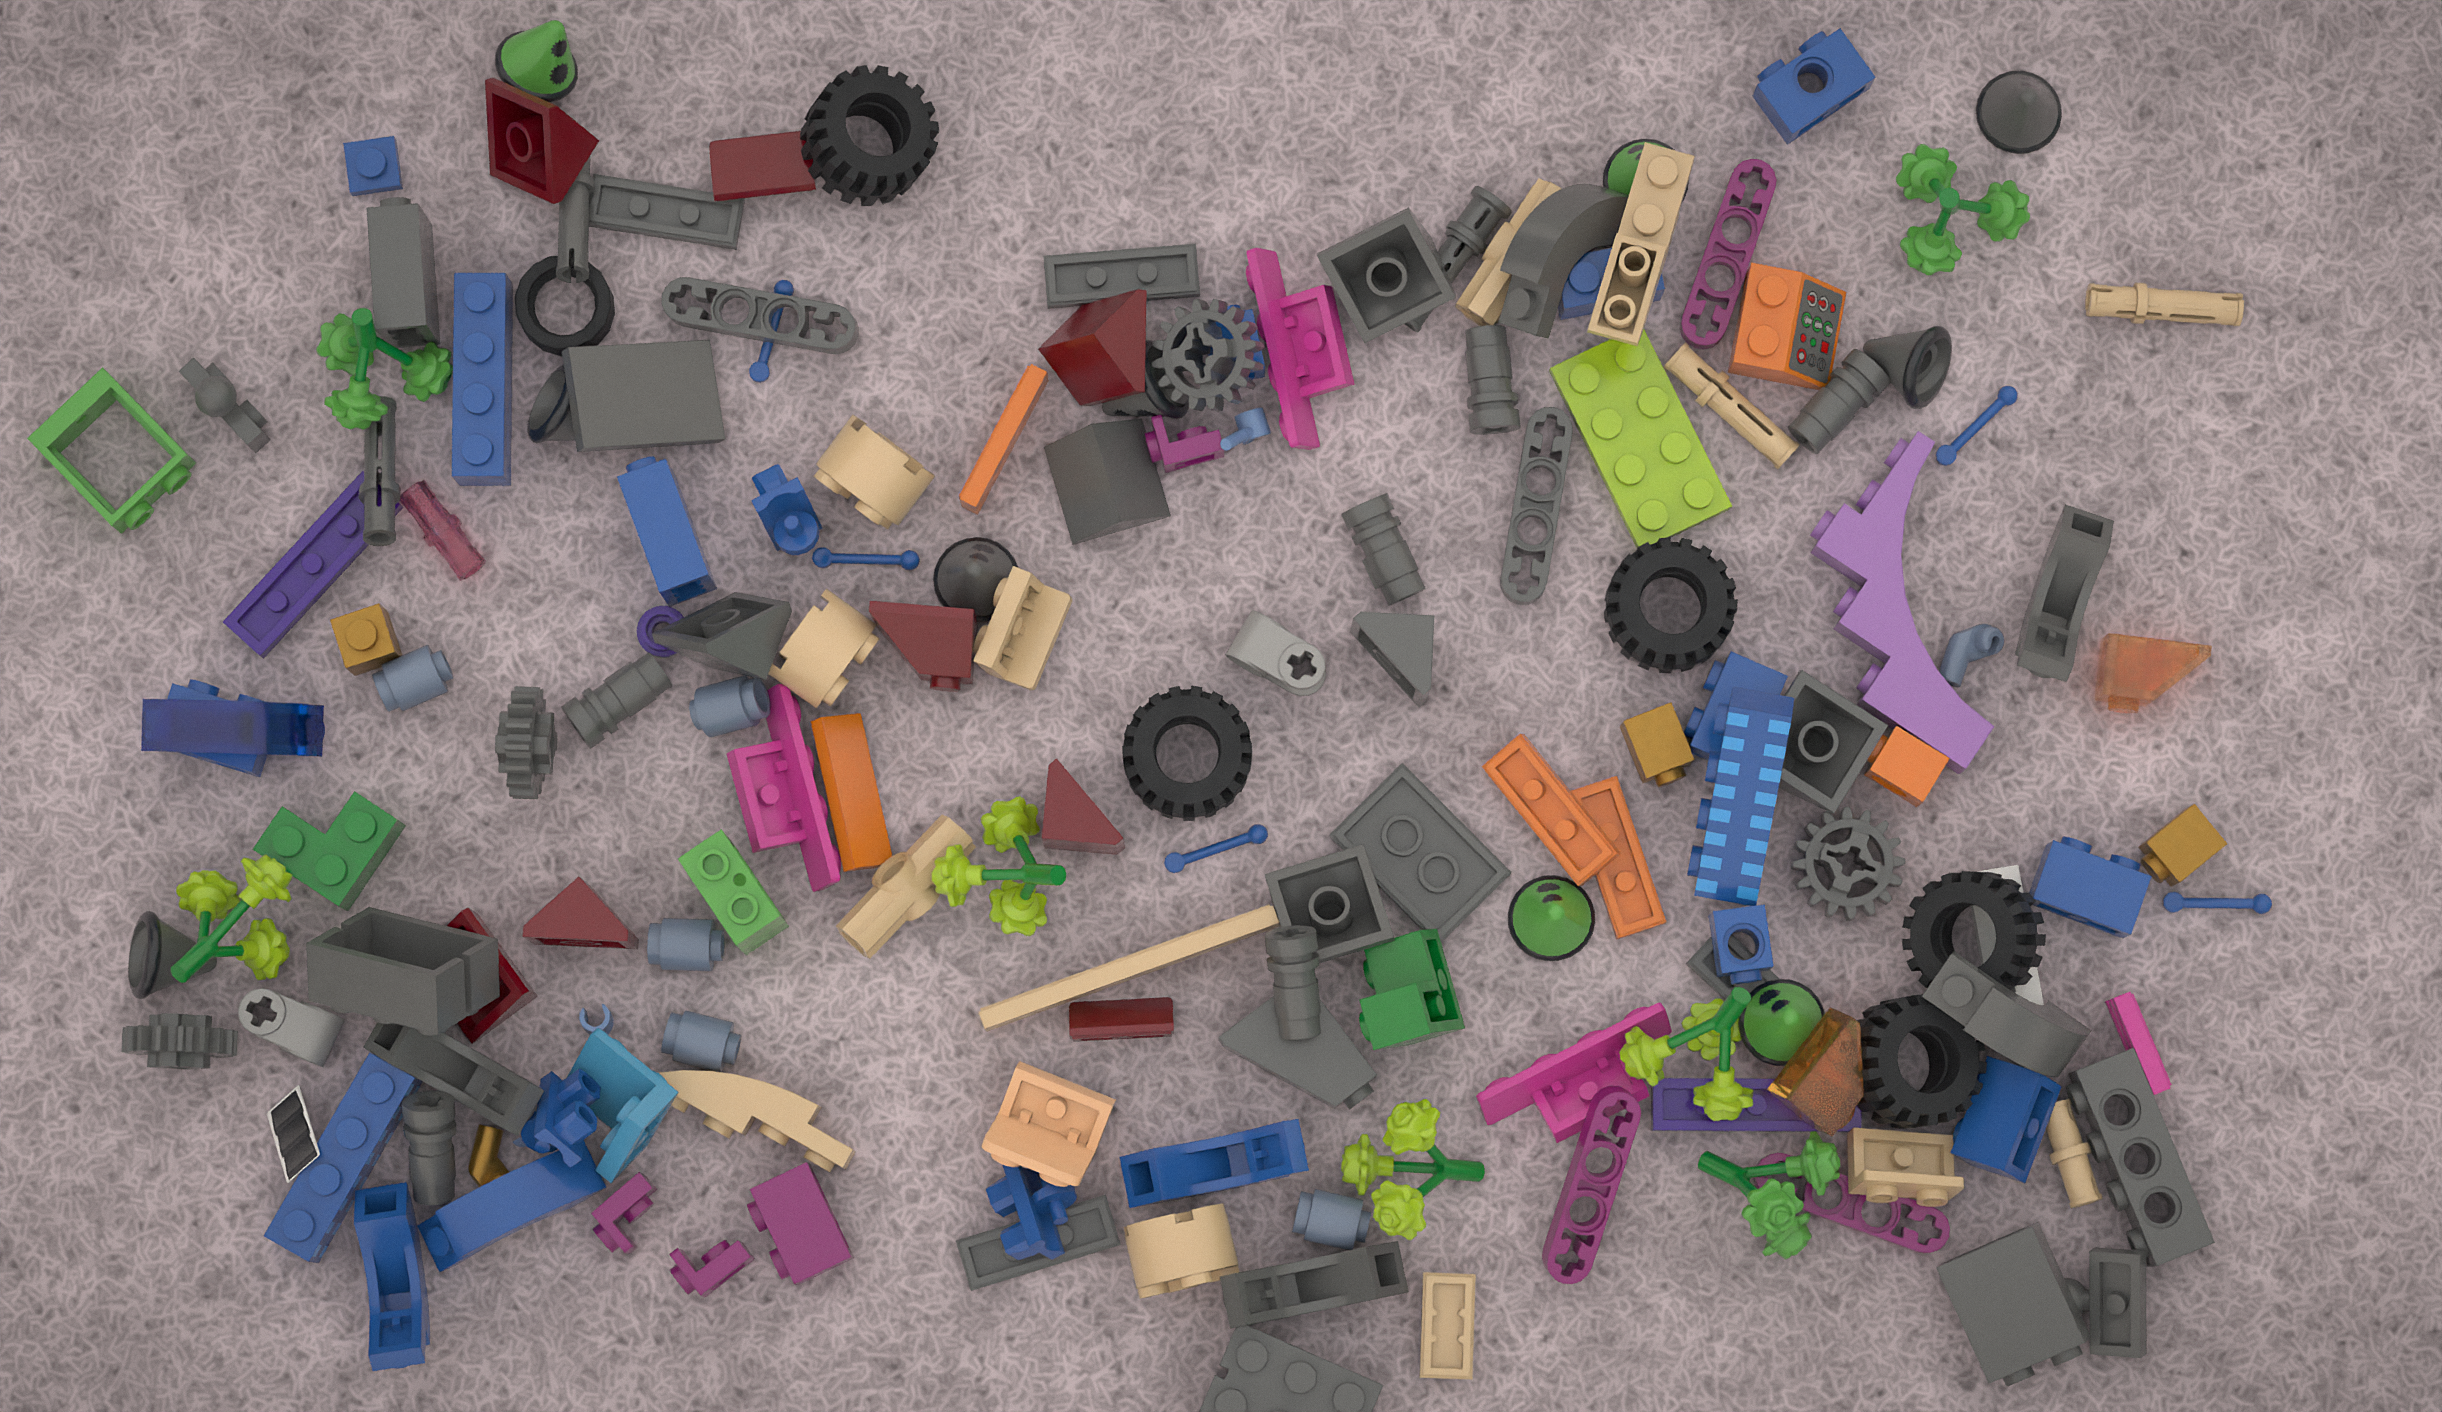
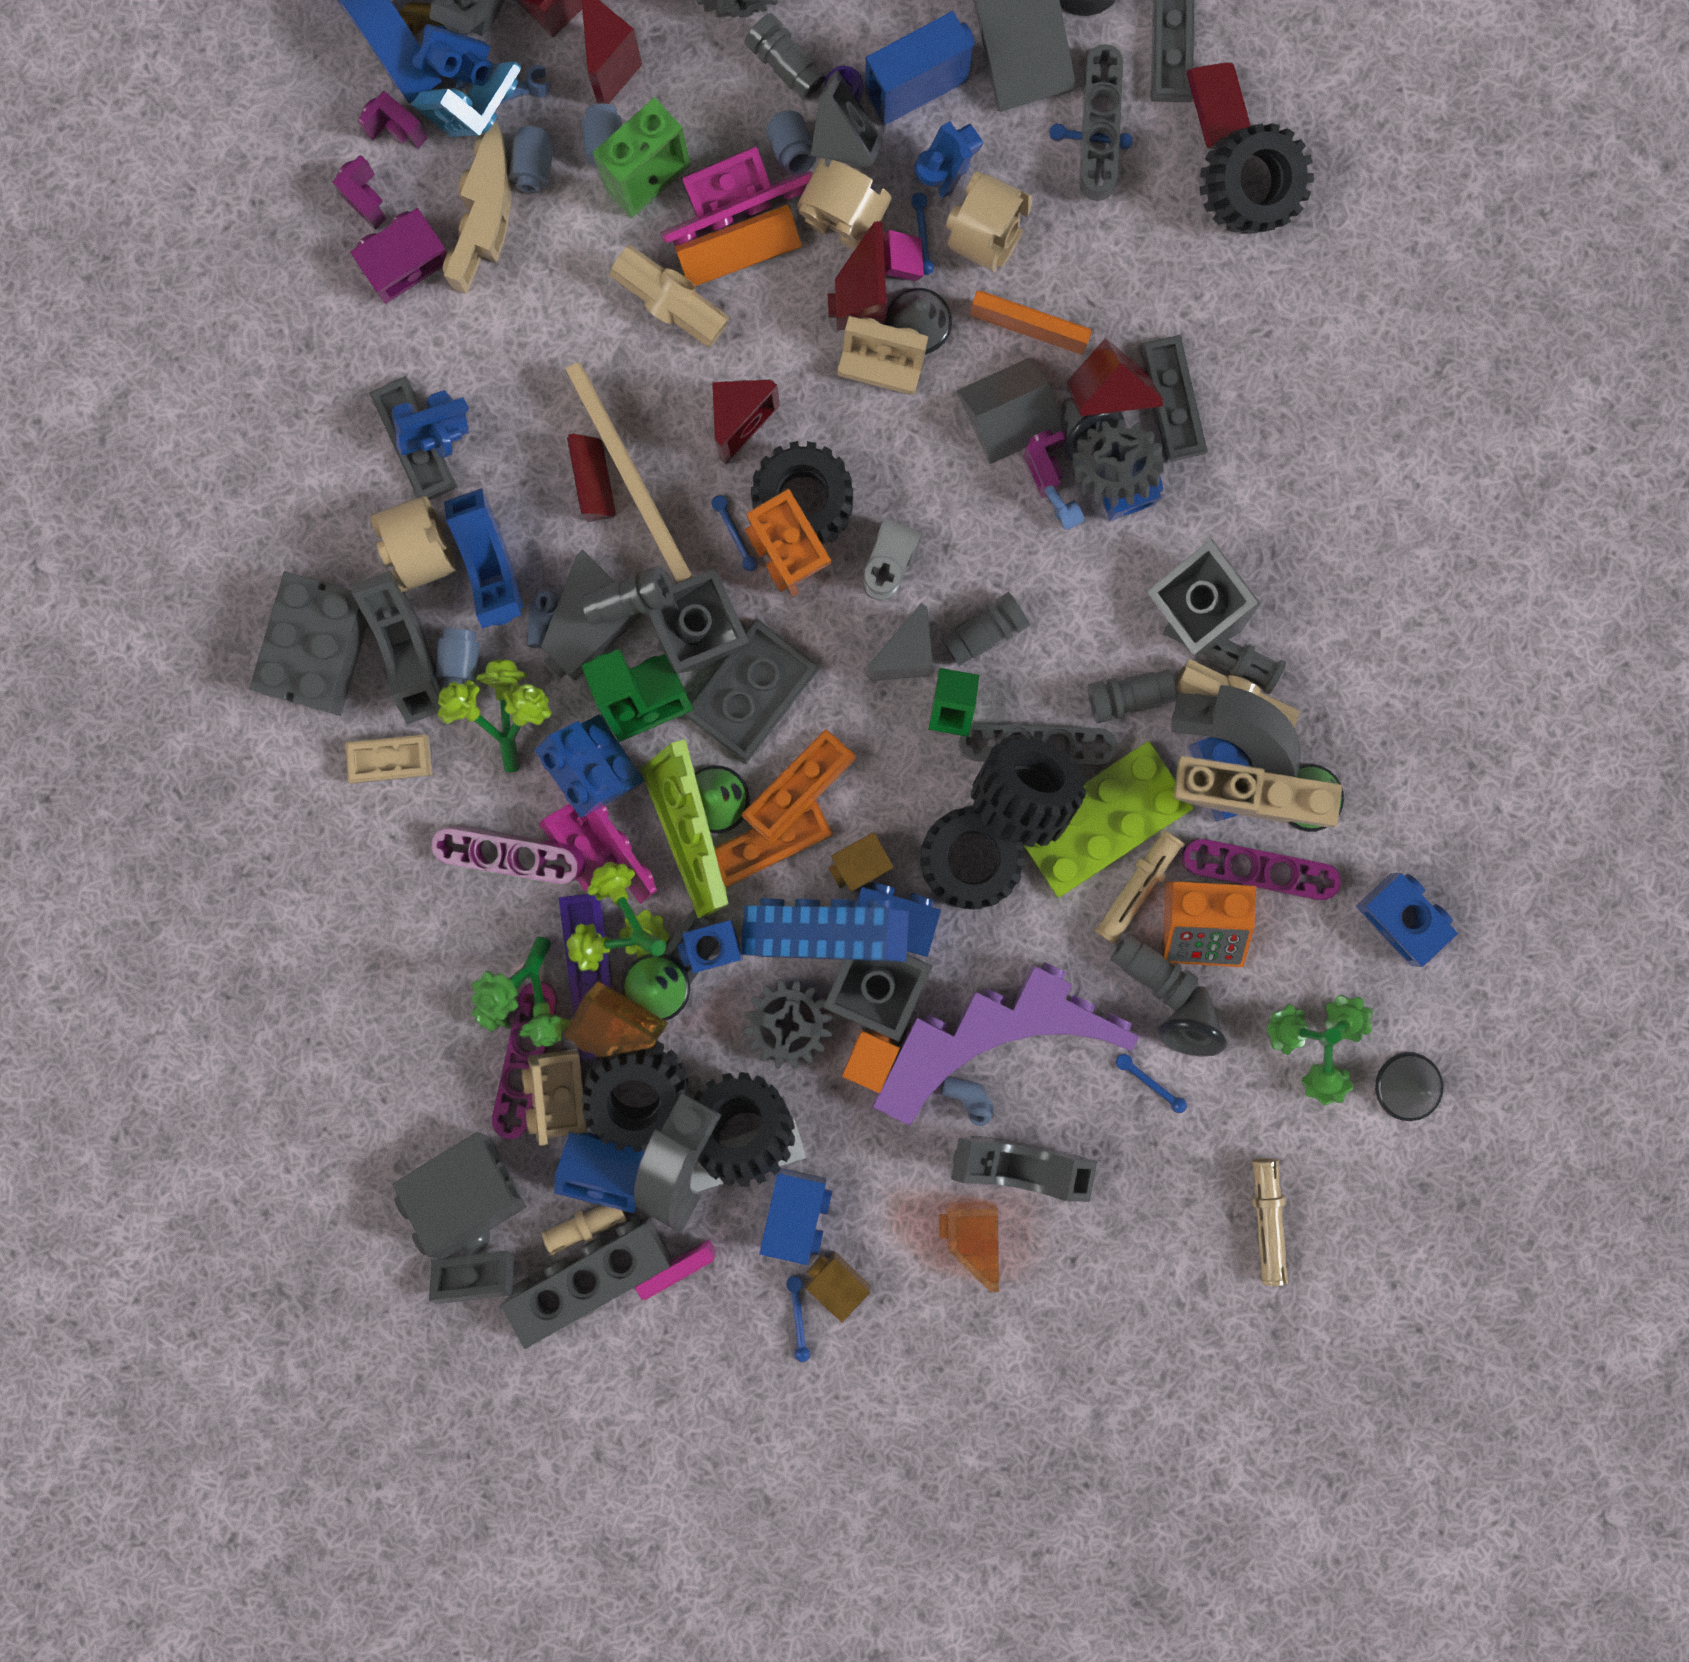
camera: 85 degrees right, 5 degrees up
(895, 583) = (903, 255): none -> dark pink tile
(1015, 903) = (670, 387): lime plant -> none
(1048, 1126) = (494, 428): light nougat bracket -> none
(1251, 775) = (787, 539): none -> orange bracket
(1286, 1104) = (540, 616): none -> sand blue arm
(1302, 344) = (1138, 542): dark pink bracket -> none
(1472, 600) = (954, 702): none -> green brick
(1493, 1065) = (588, 765): none -> blue plate
(1577, 956) = (683, 819): none -> lime wing
(1600, 521) = (1028, 790): none -> black tyre

